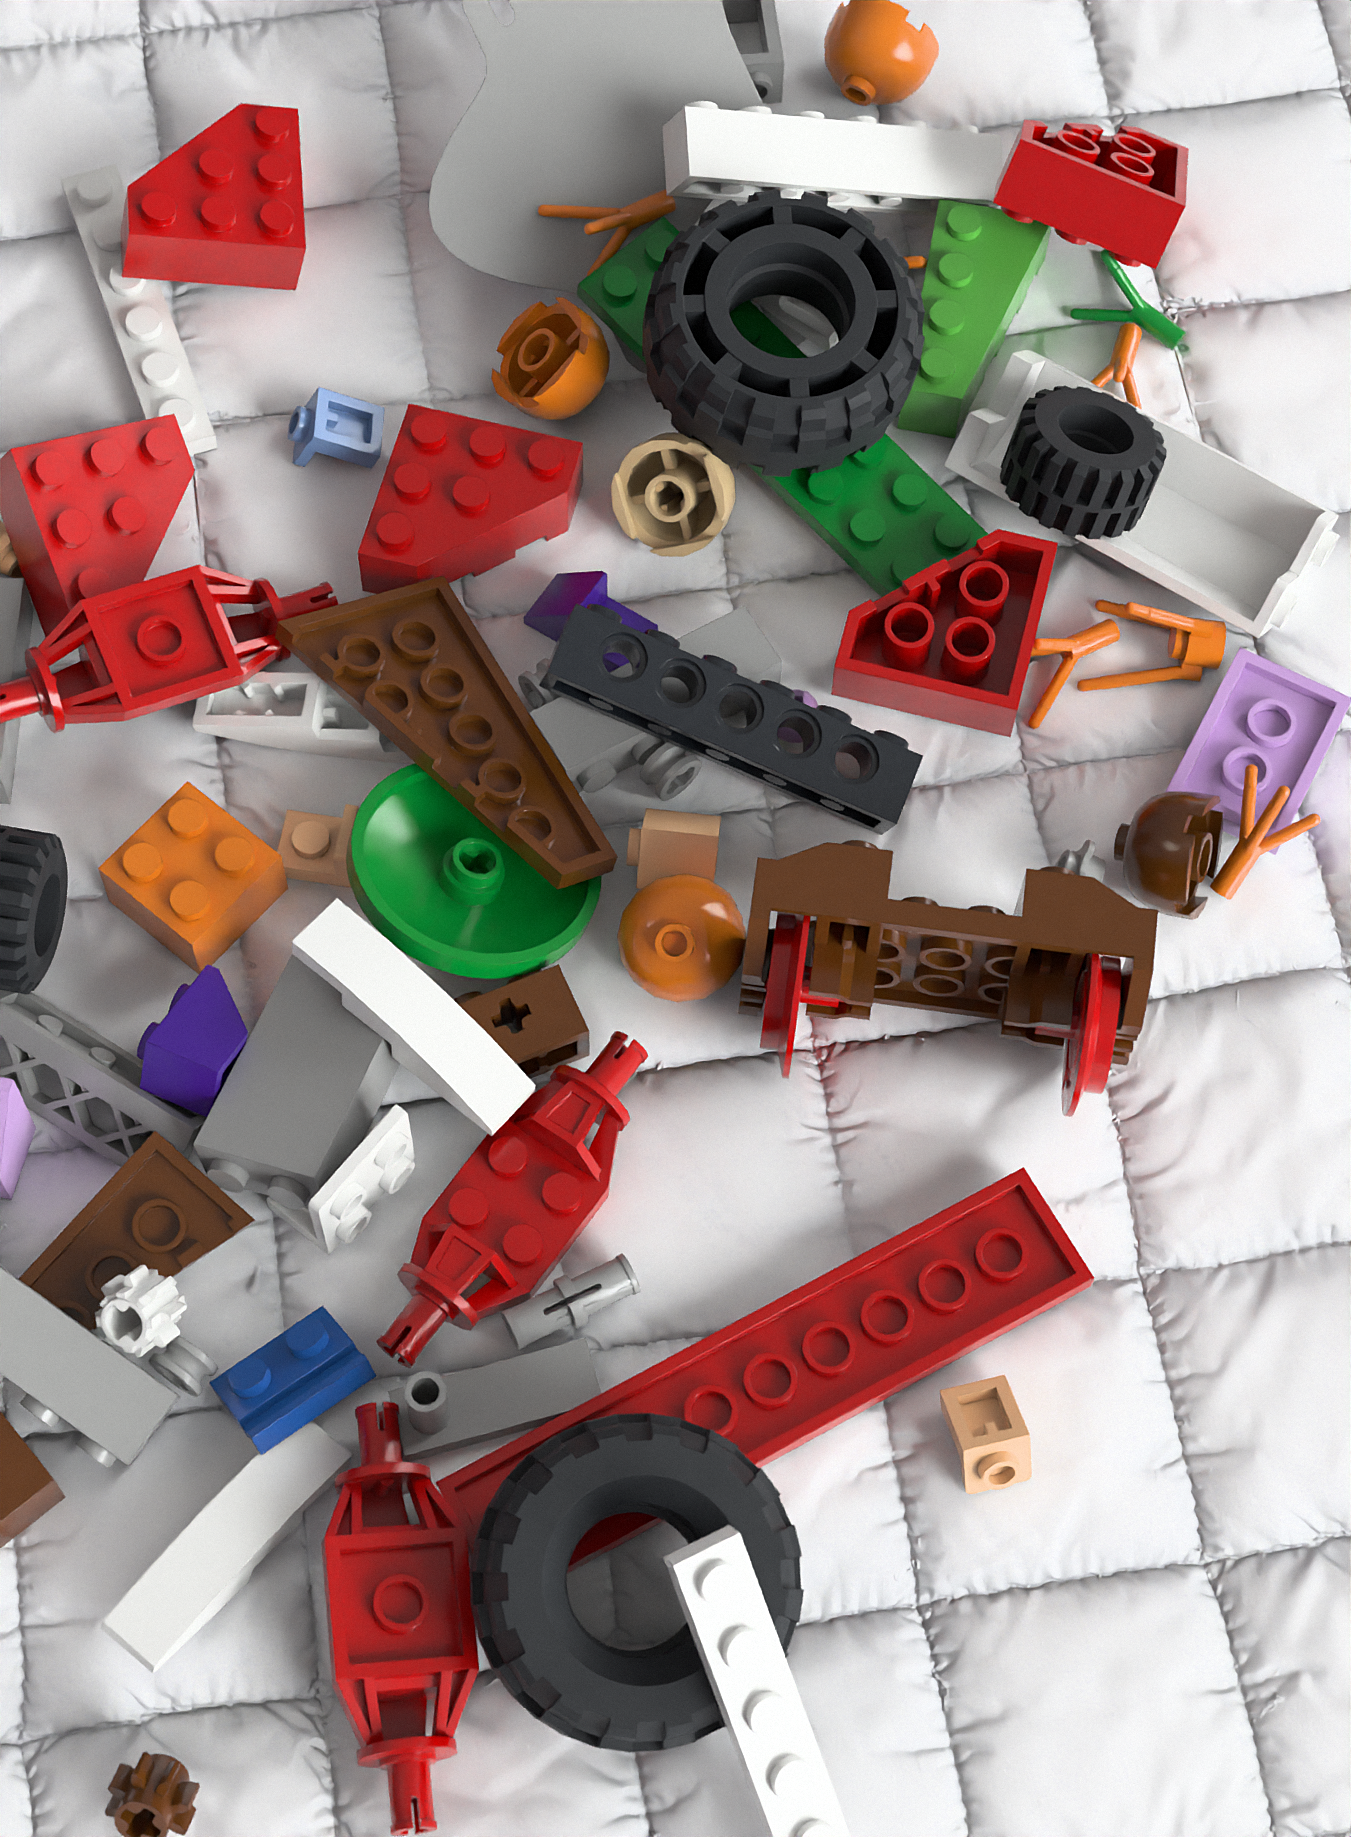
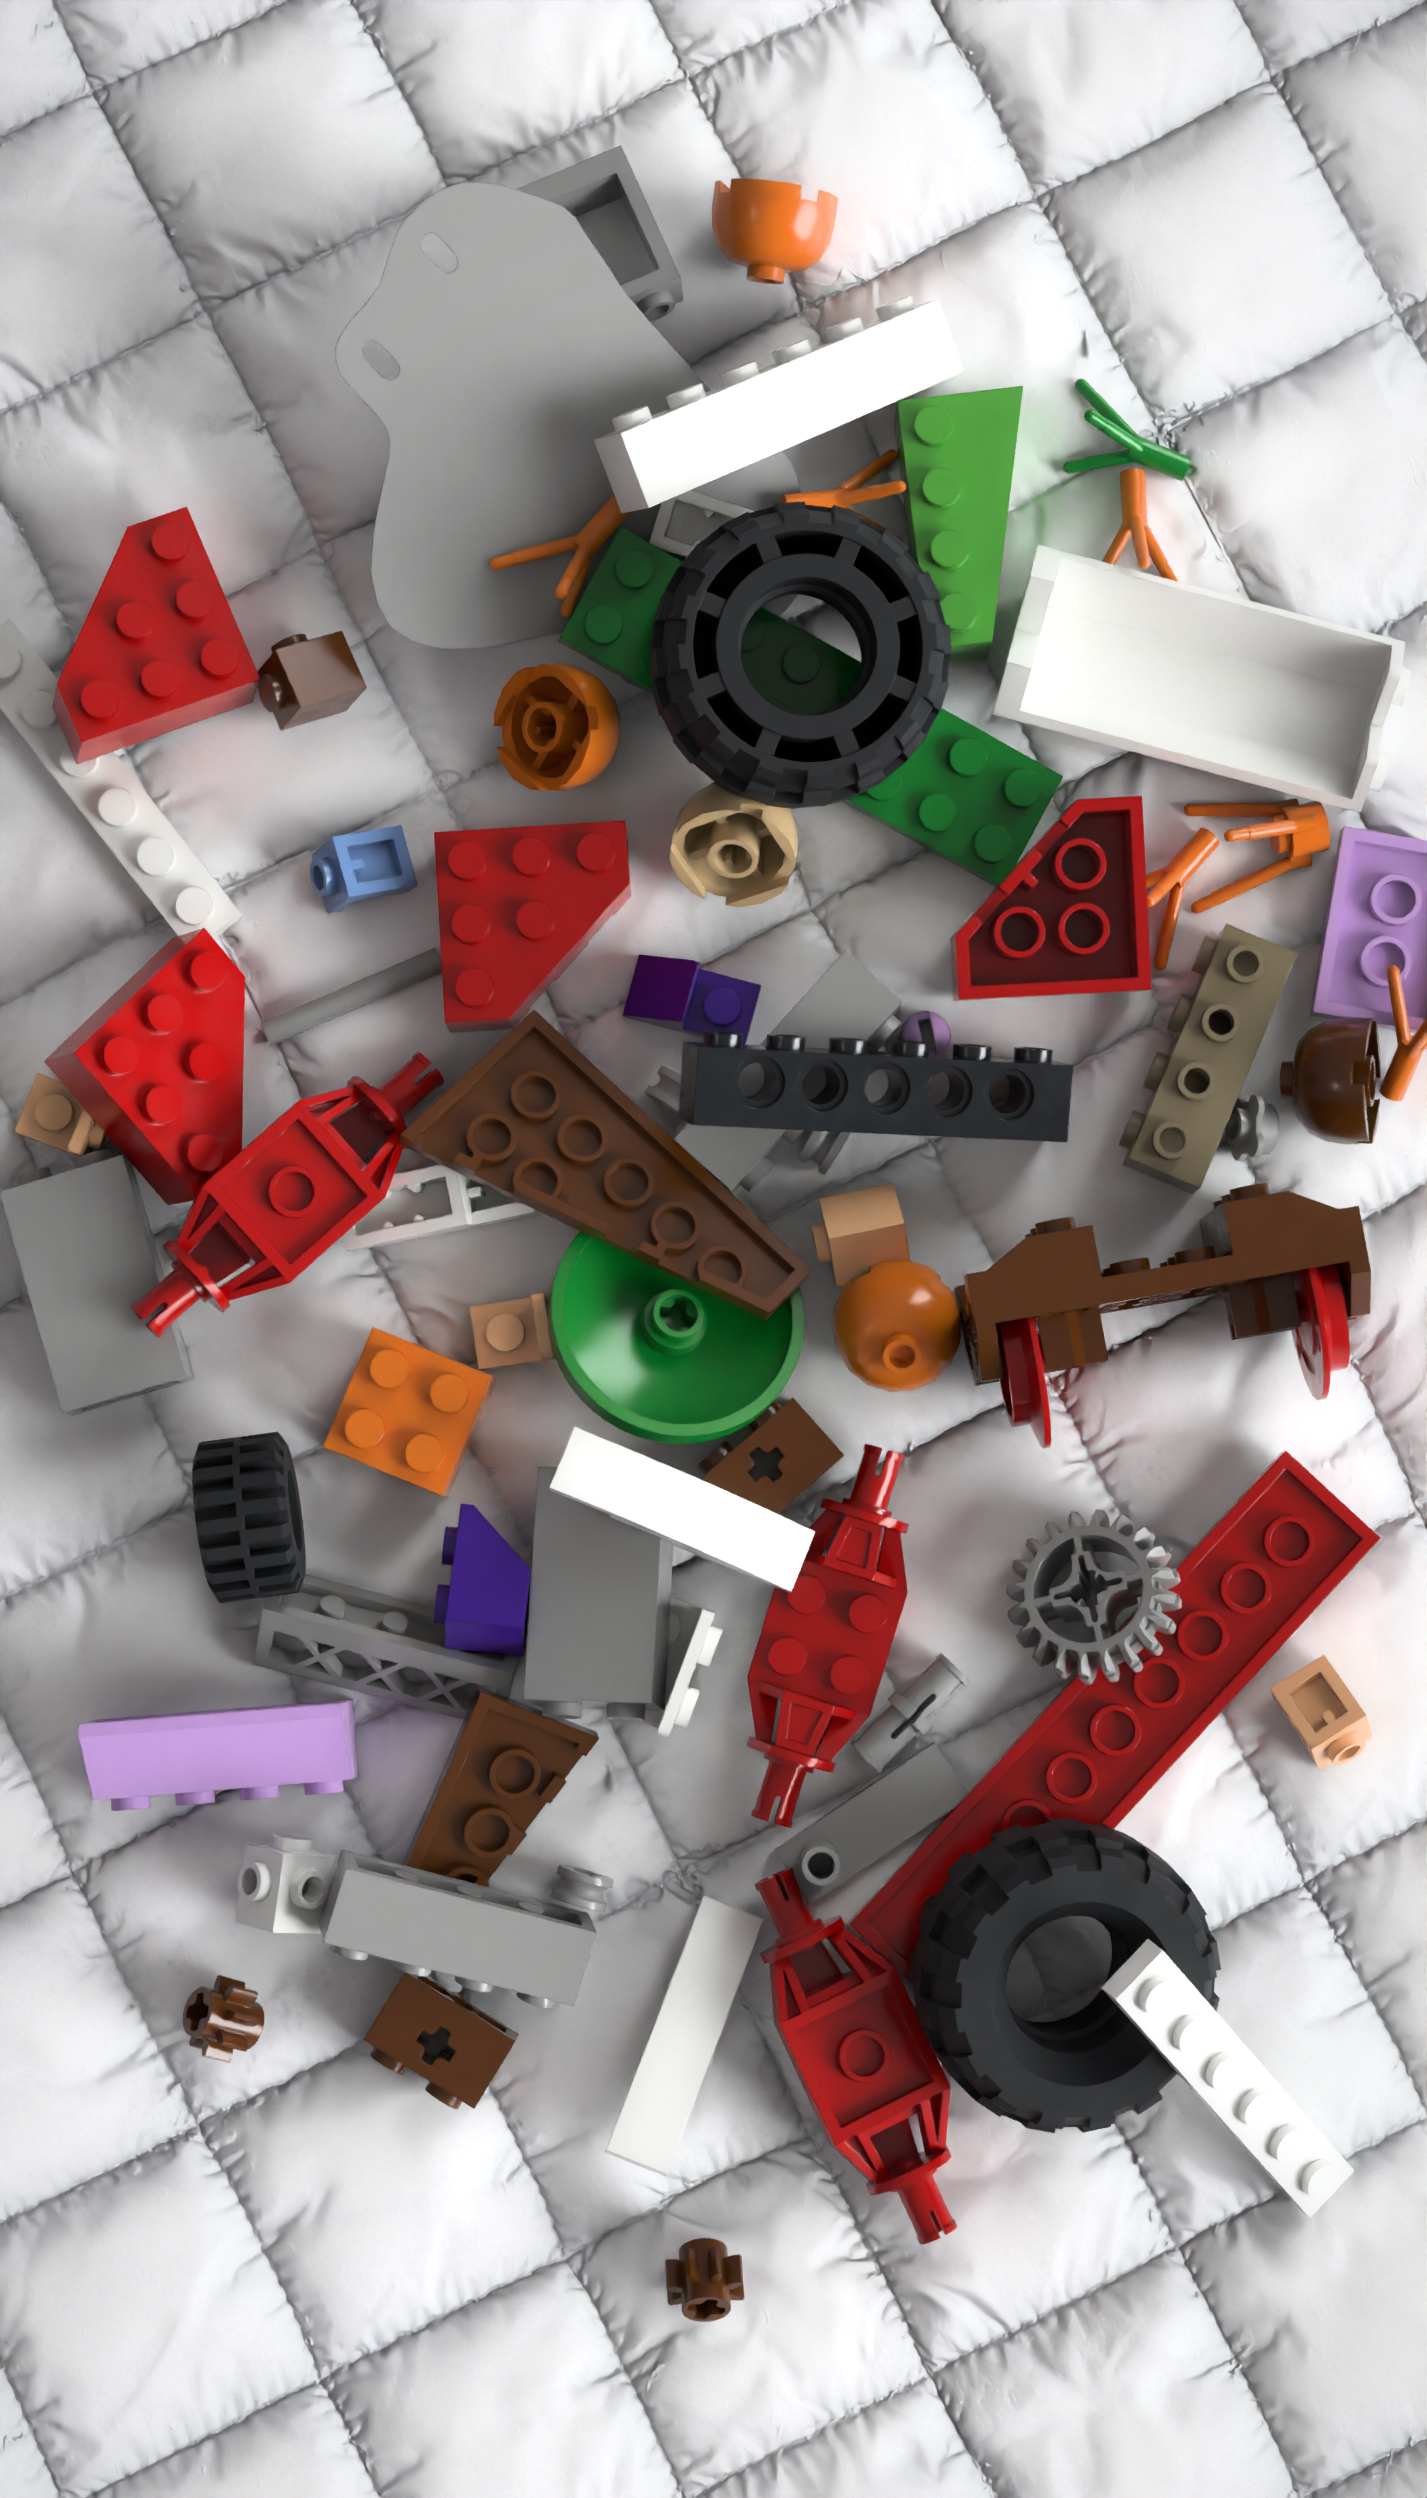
camera: 15 degrees left, 20 degrees up
(140, 1311) = (533, 1866): white gear -> none
(281, 533) = (352, 997): none -> light grey bar
(292, 1379) = (686, 1871): blue plate -> none
(349, 271) = (309, 679): none -> brick
(789, 1238) = (1117, 1594): none -> light grey gear
(1055, 801) = (1208, 1059): none -> dark tan brick
(1082, 462) = (1142, 638): black tyre -> none
(1097, 187) = (1068, 343): red brick -> none

